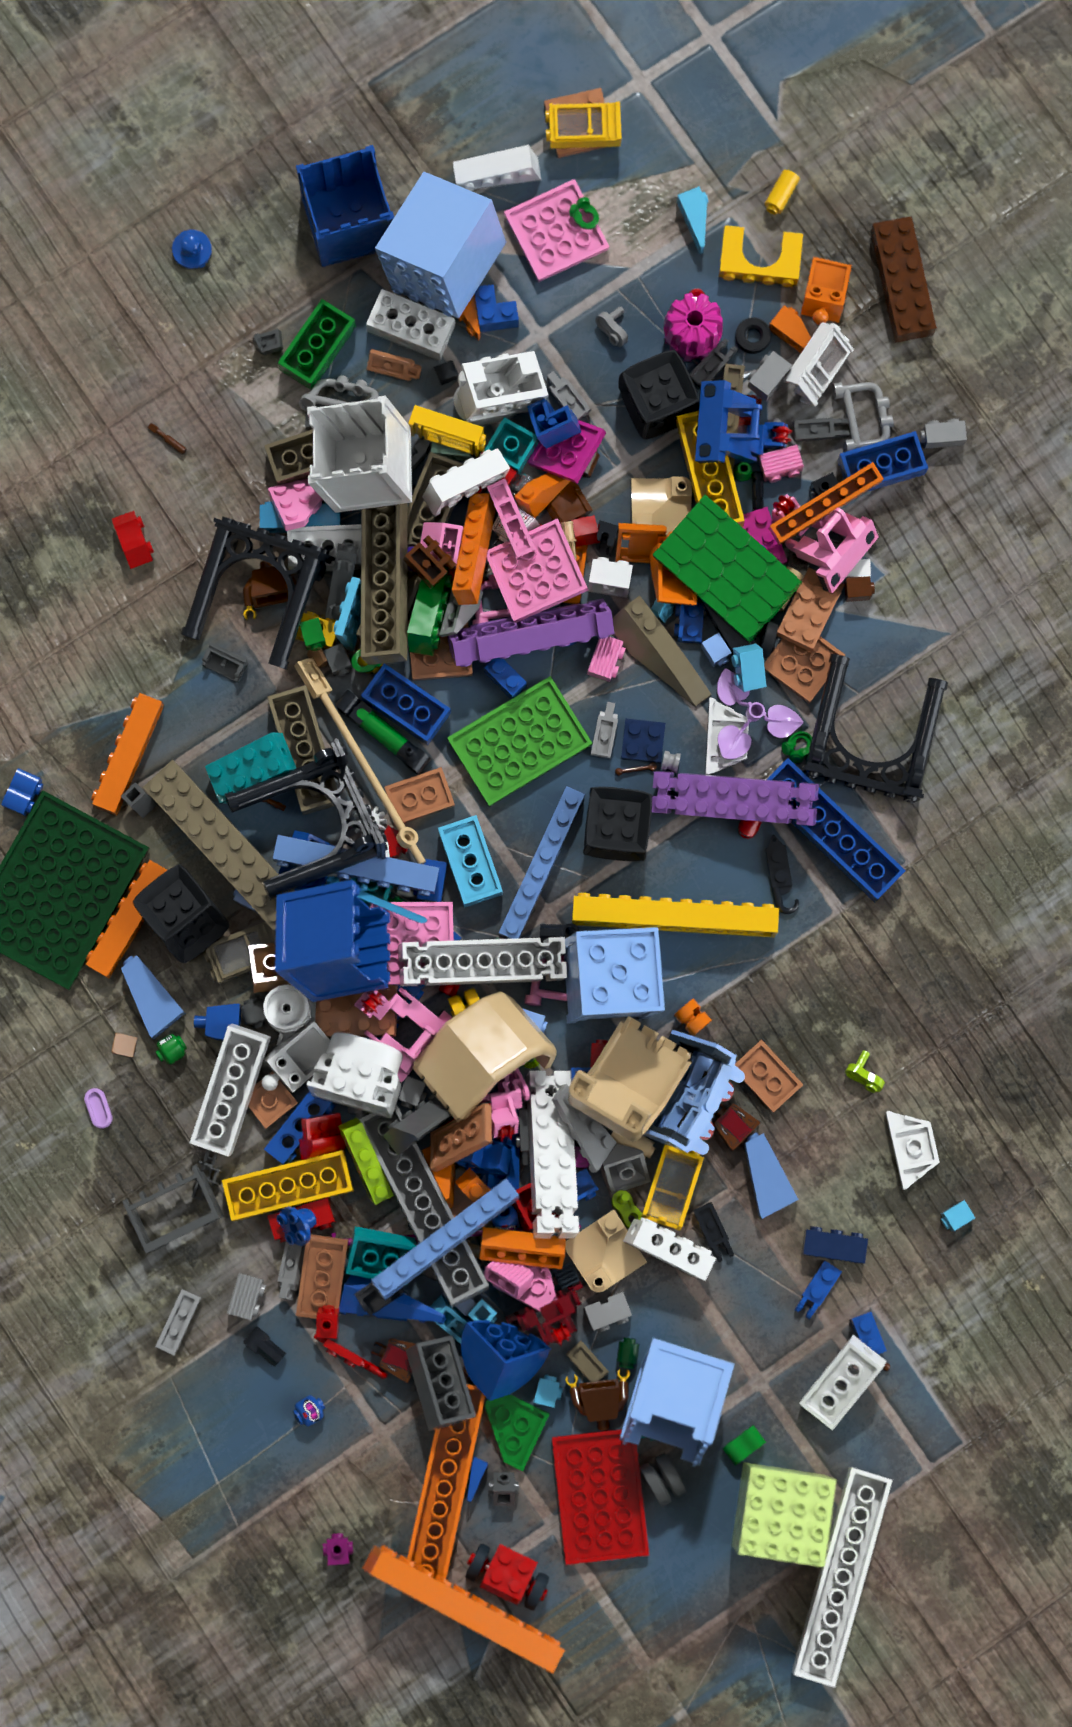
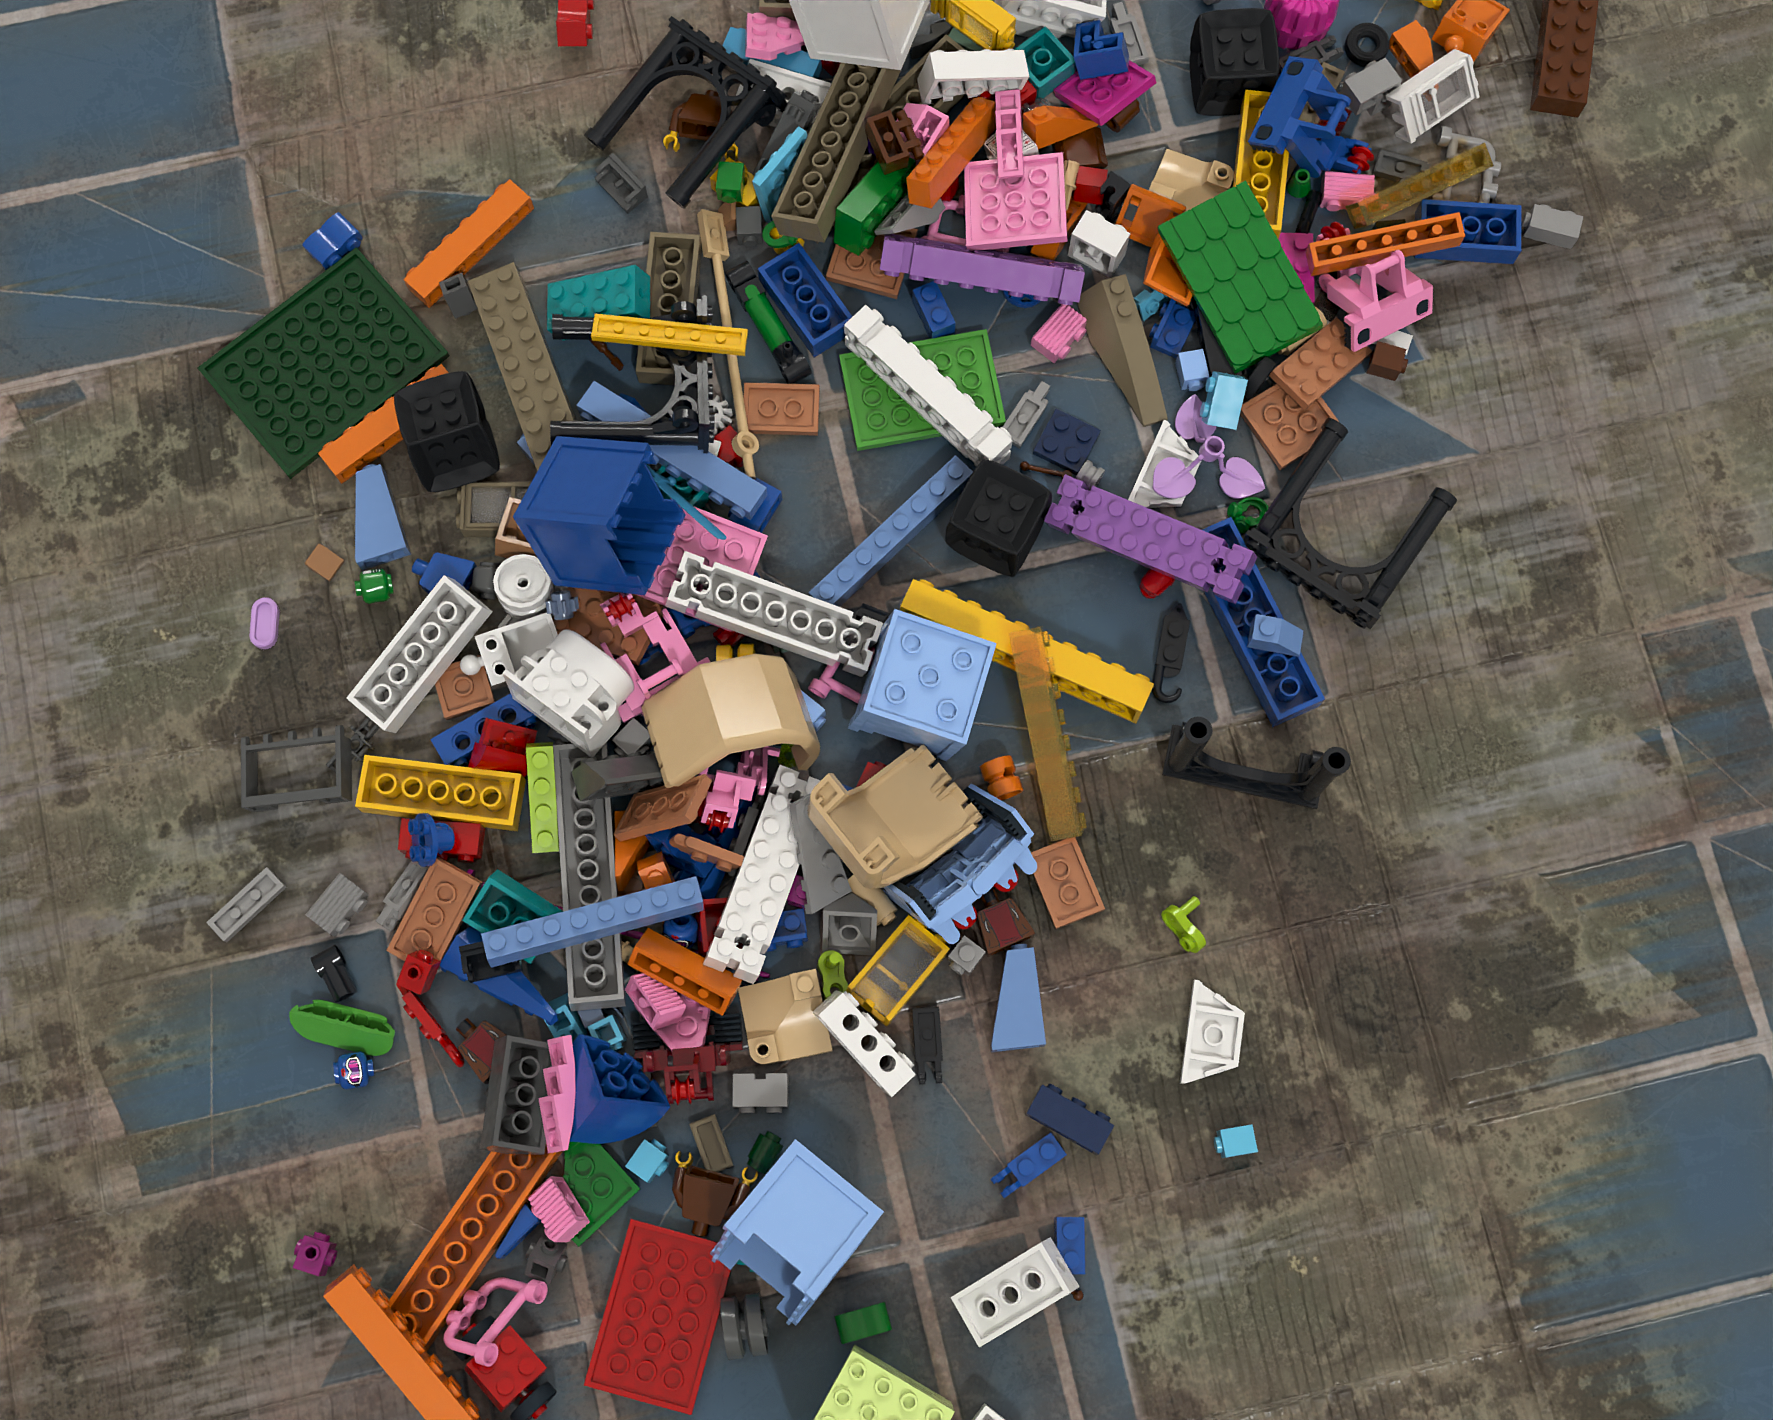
camera: 25 degrees right, 5 degrees down
(289, 1382) = (343, 1027): none -> bright green brick
(320, 778) = (669, 334): none -> yellow tile
(322, 1013) = (562, 605): none -> sand blue gear
(464, 1537) = (485, 1351): none -> bright pink bar
(472, 1375) = (559, 1105): none -> bright pink slope
(477, 849) = (821, 513): medium azure brick -> none
(499, 1451) = (558, 1210): none -> bright pink brick
(502, 1158) = (704, 851): none -> nougat hinge
(526, 744) = (925, 388): none -> white brick
(714, 973) = (1046, 733): none -> clear yellow brick
(716, 1158) = (965, 956): none -> light grey brick
(825, 950) = (1188, 762): none -> black arch
(834, 444) = (1419, 186): none -> clear yellow brick
(853, 838) = (1275, 635): none -> medium blue slope

